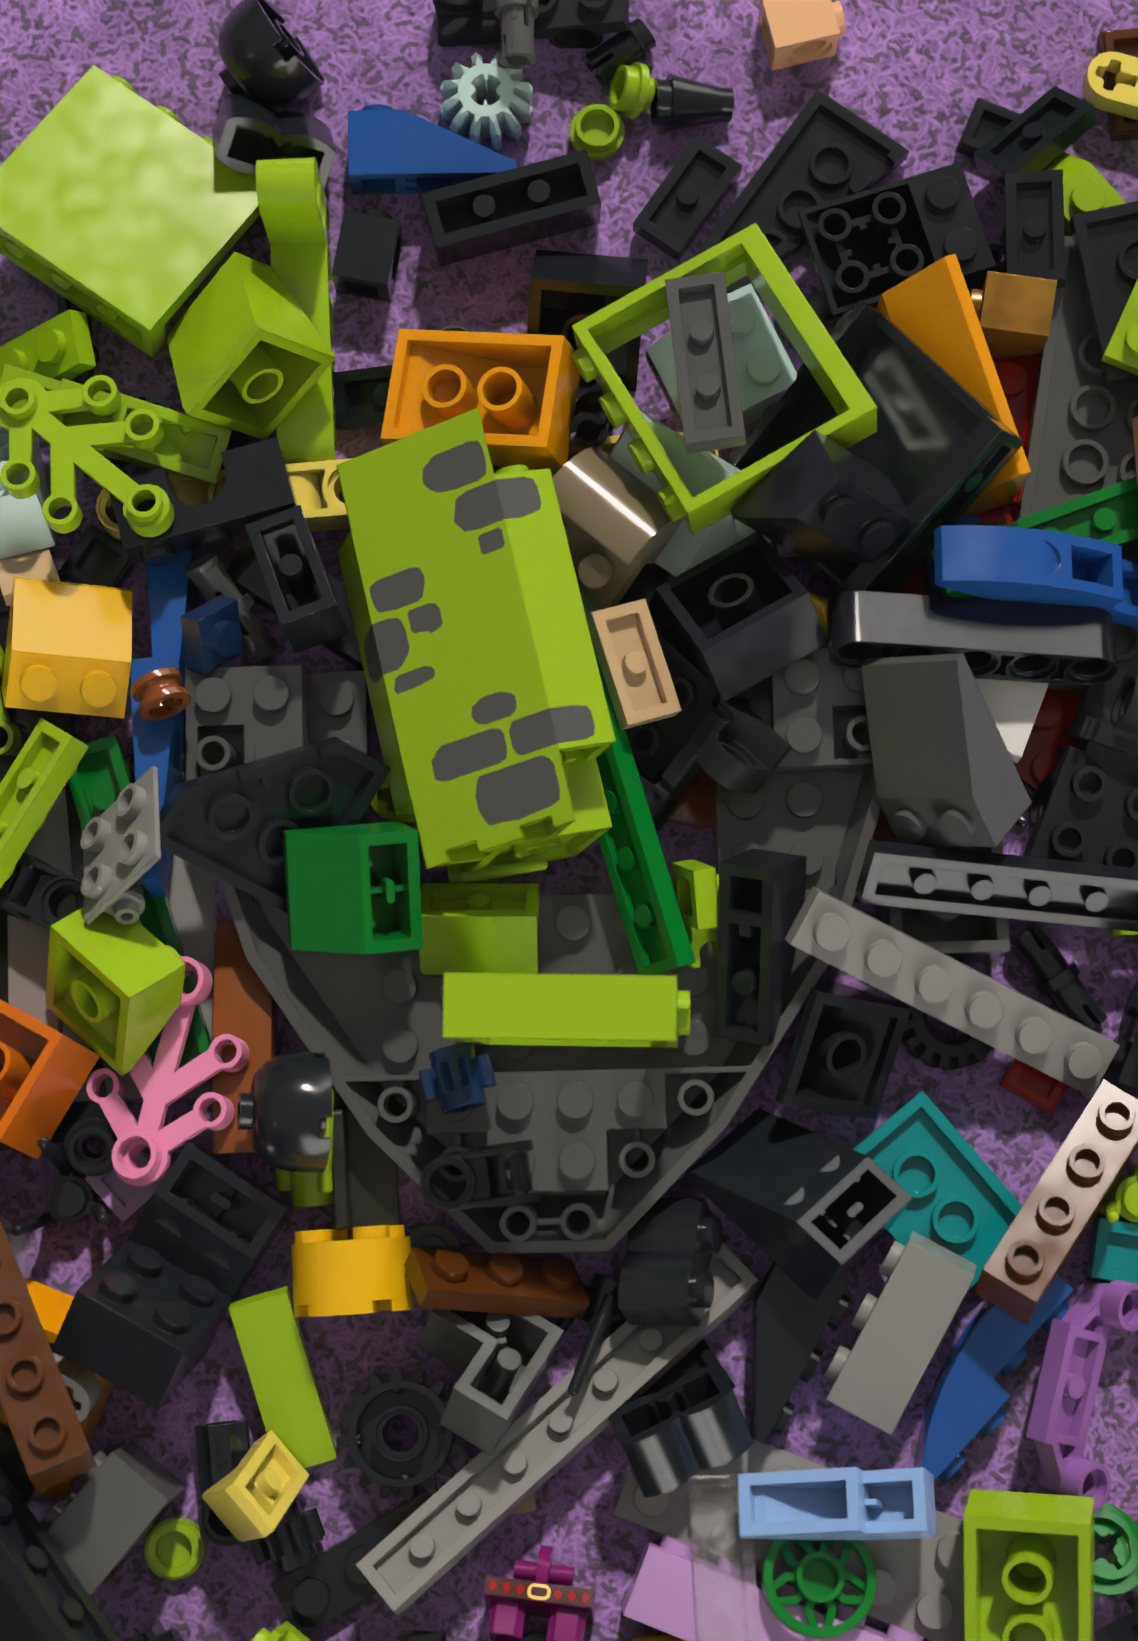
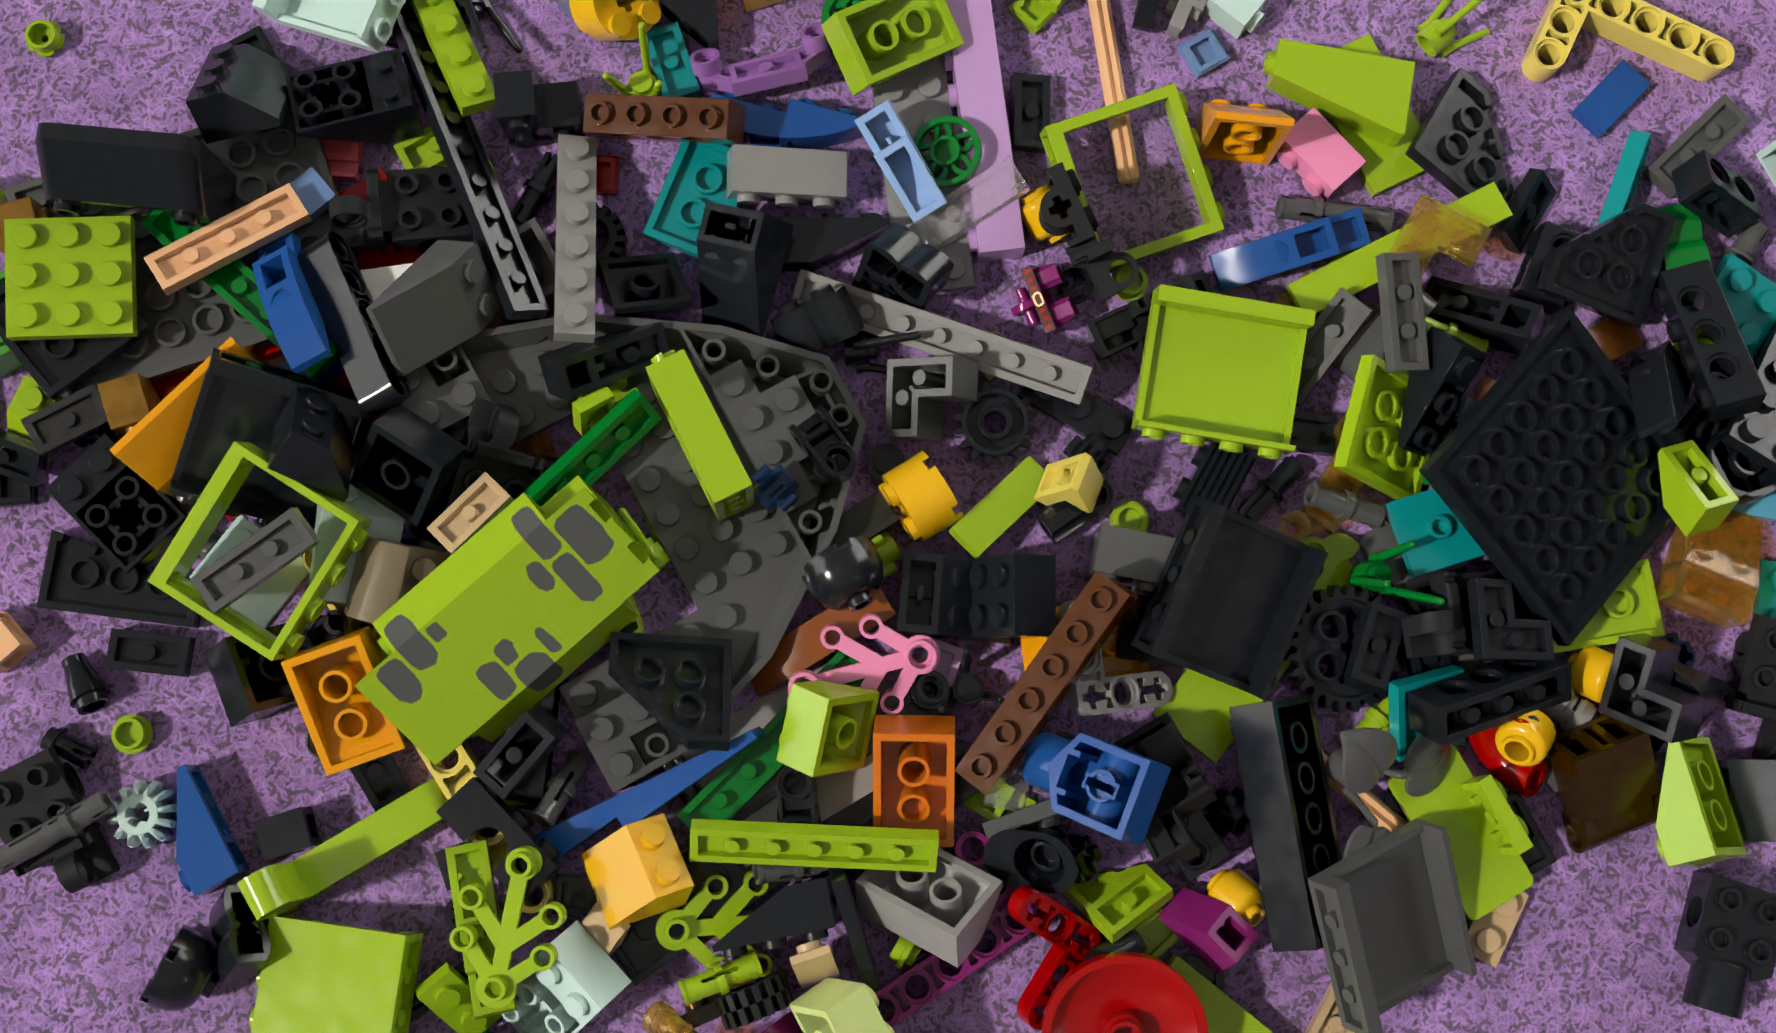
camera: 125 degrees left, 0 degrees up
(120, 850) = (743, 760): light grey hinge -> none
(160, 694) = (636, 792): dark orange bush -> none
(212, 634) = (583, 786): dark blue plate -> none
(245, 350) = (387, 870): lime slope -> none
(353, 888) = (694, 611): green slope -> none
(479, 928) = (680, 530): lime panel -> none
(496, 1283) = (881, 410): reddish brown plate -> none
(512, 207) = (210, 756): black brick -> none
(631, 90) = (92, 725): lime plate -> none

